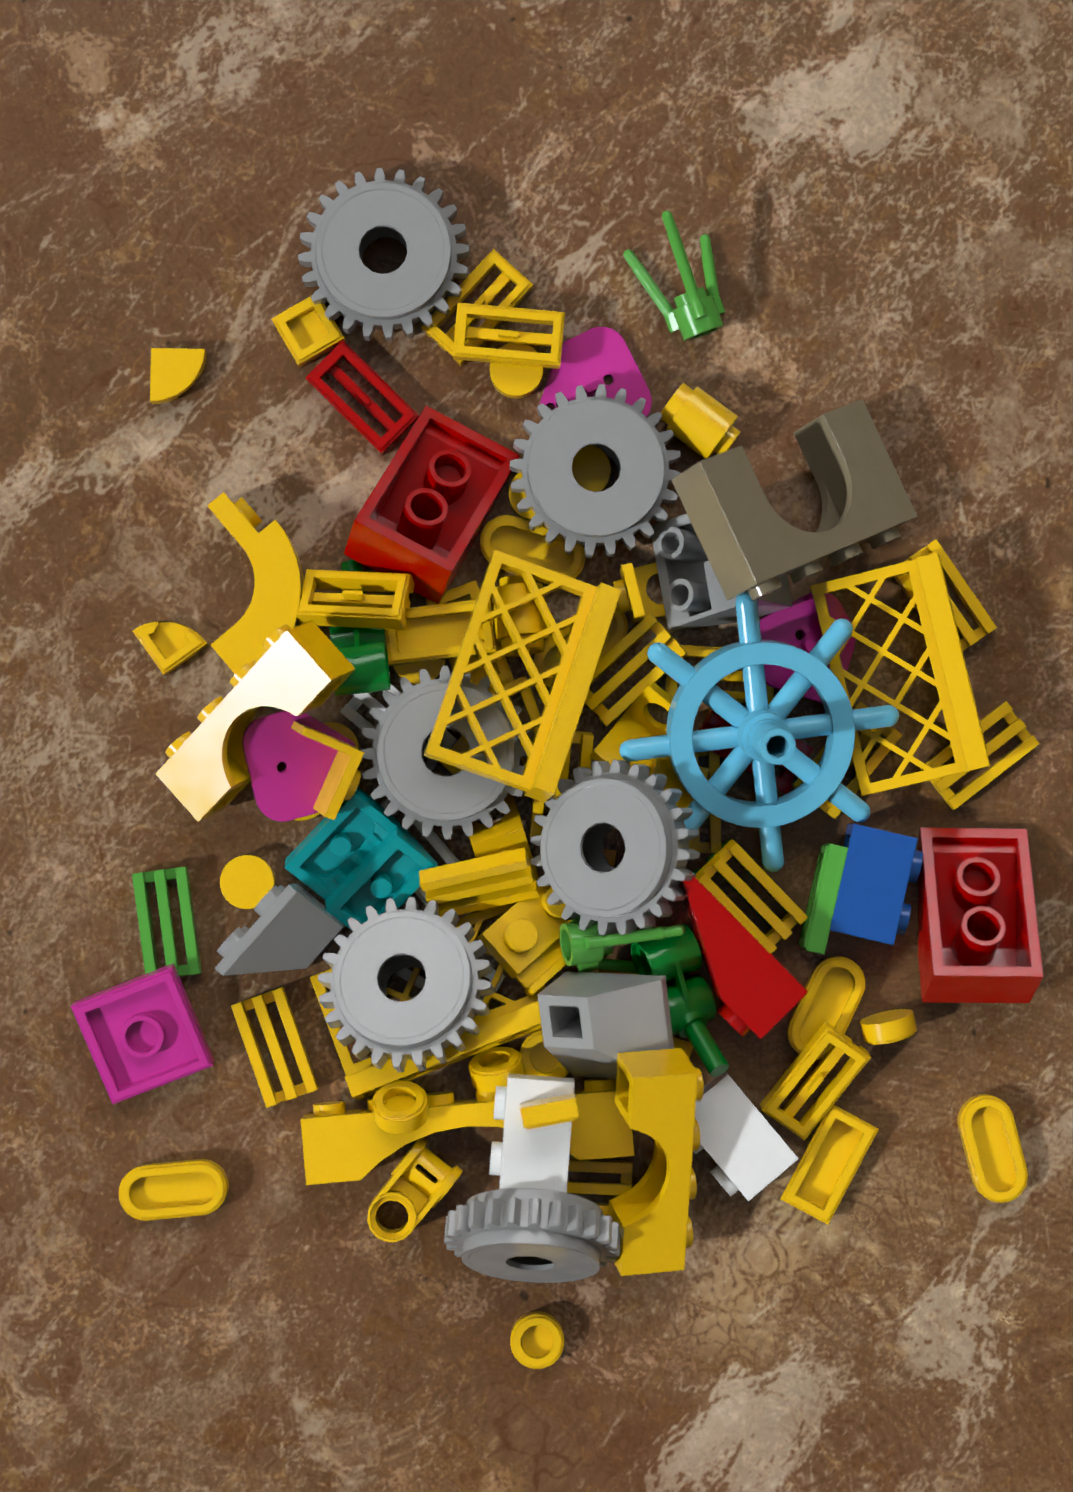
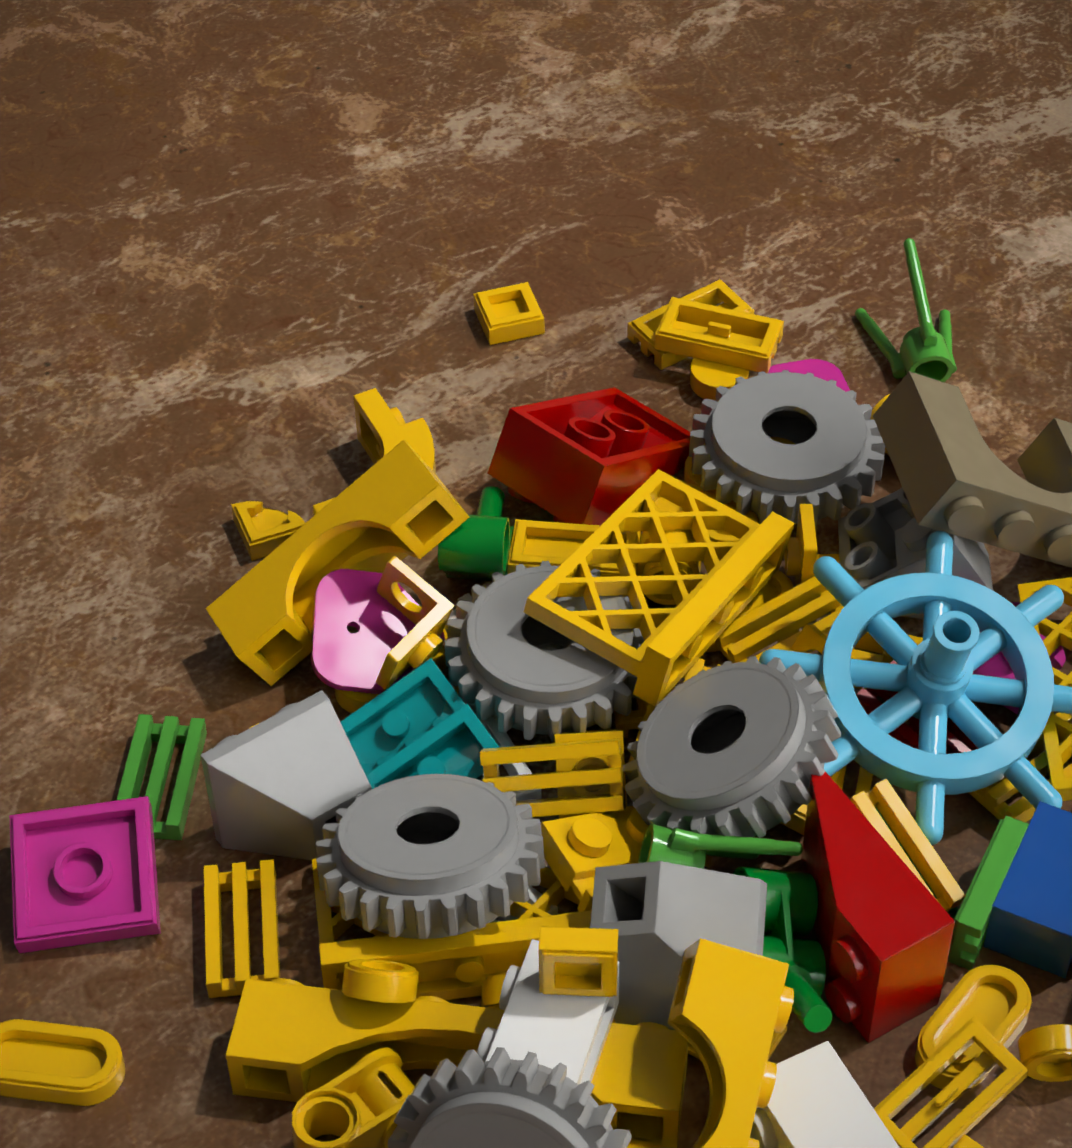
camera: 15 degrees right, 40 degrees down
(174, 372) = (358, 318): yellow tile -> none
(352, 606) = (503, 496): yellow tile -> none
(376, 212) = (604, 262): light grey gear -> none
(394, 430) = (536, 371): red tile -> none

